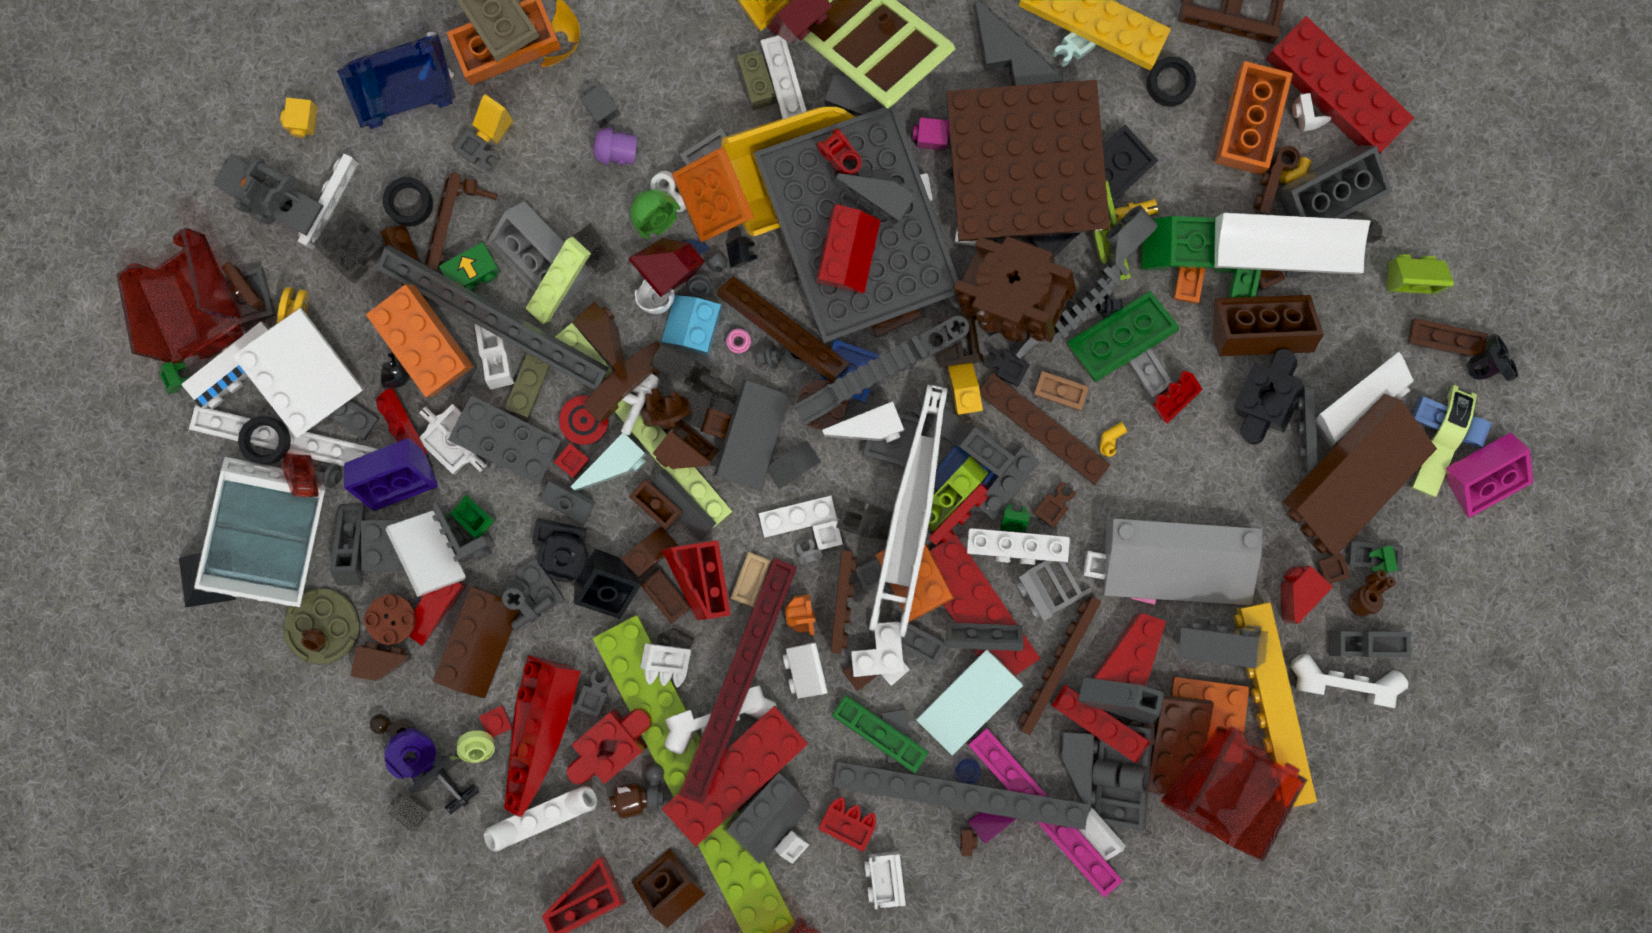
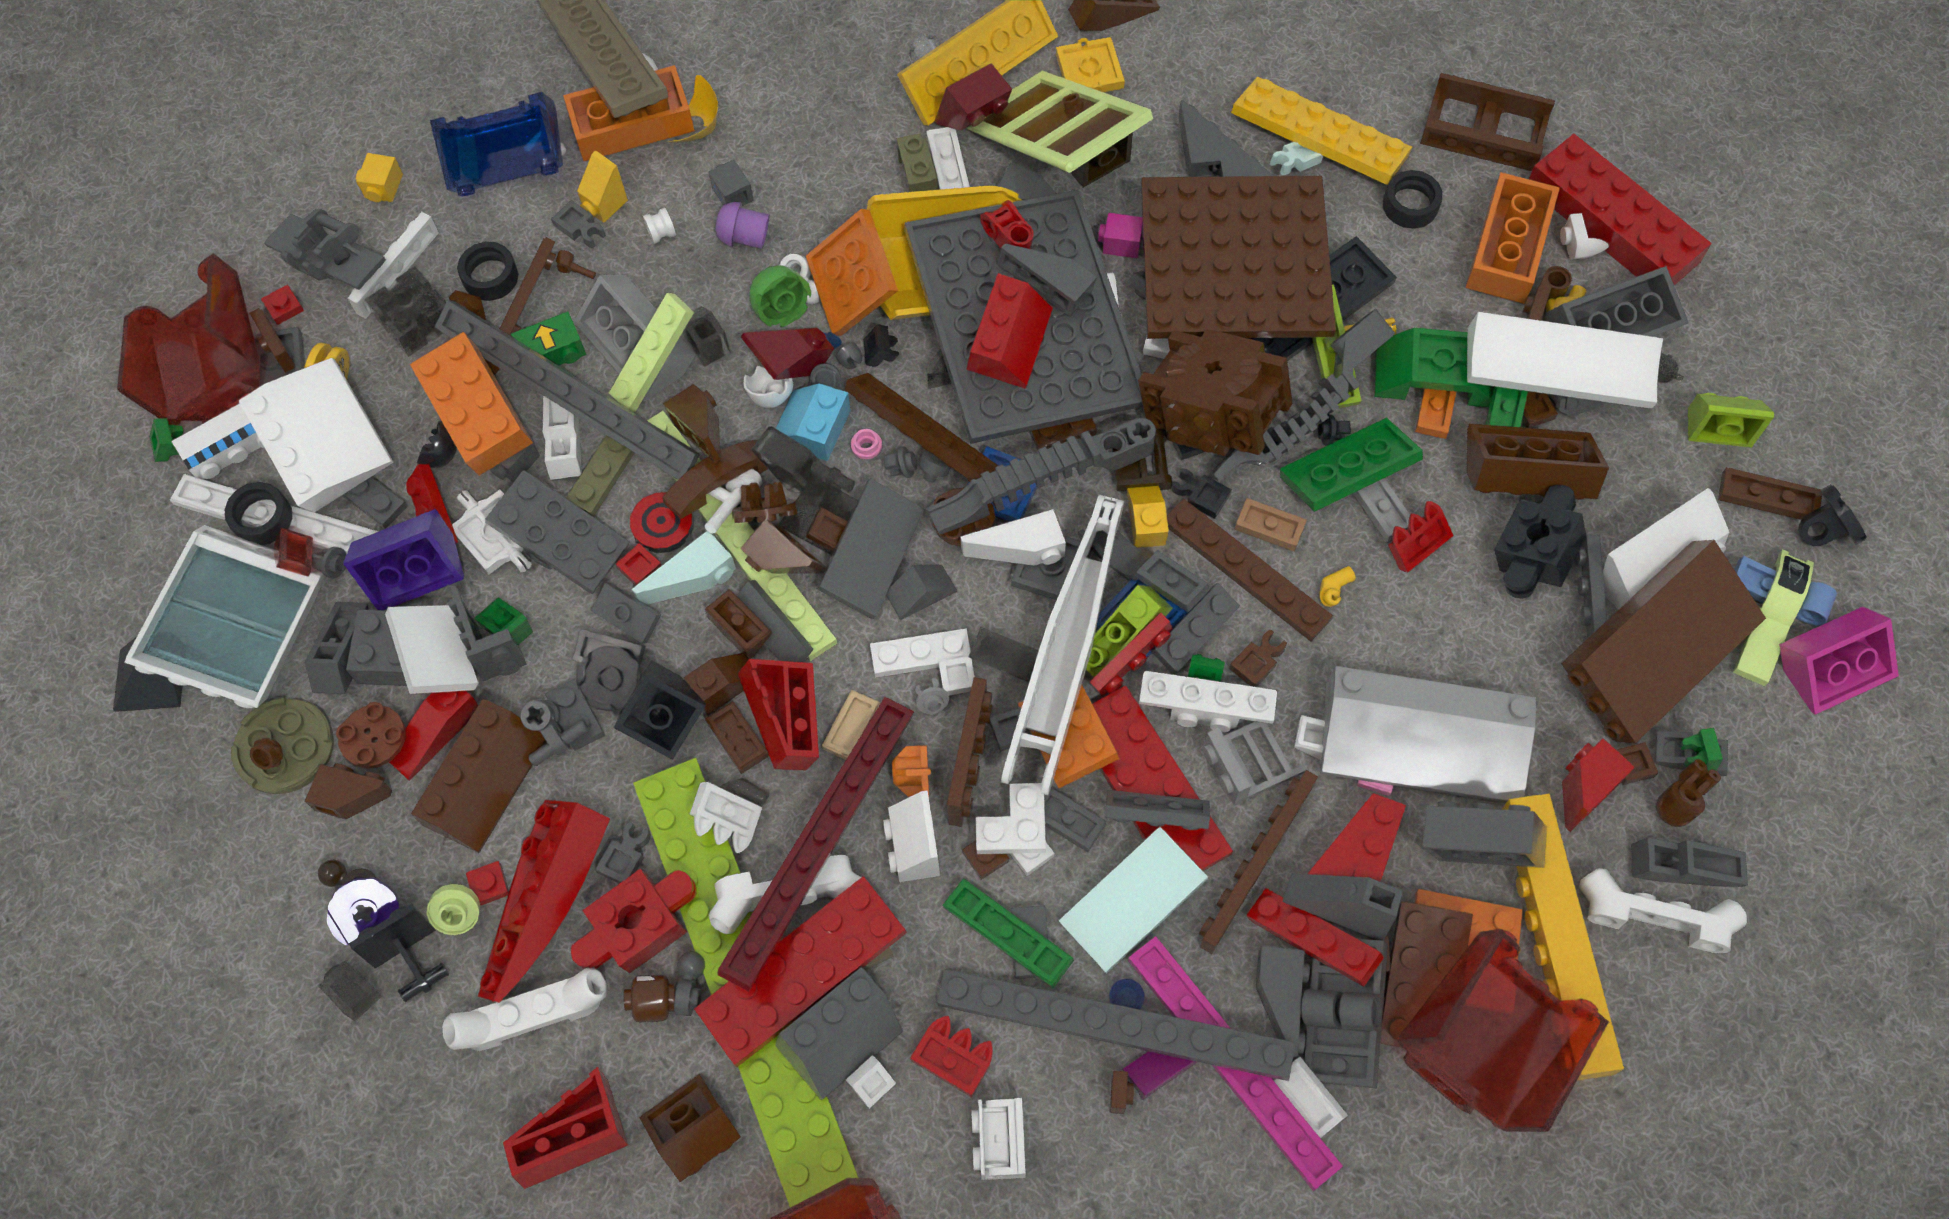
camera: 10 degrees right, 20 degrees down
(241, 243) = (282, 304): none -> red plate
(545, 149) = (659, 225): none -> white wheel

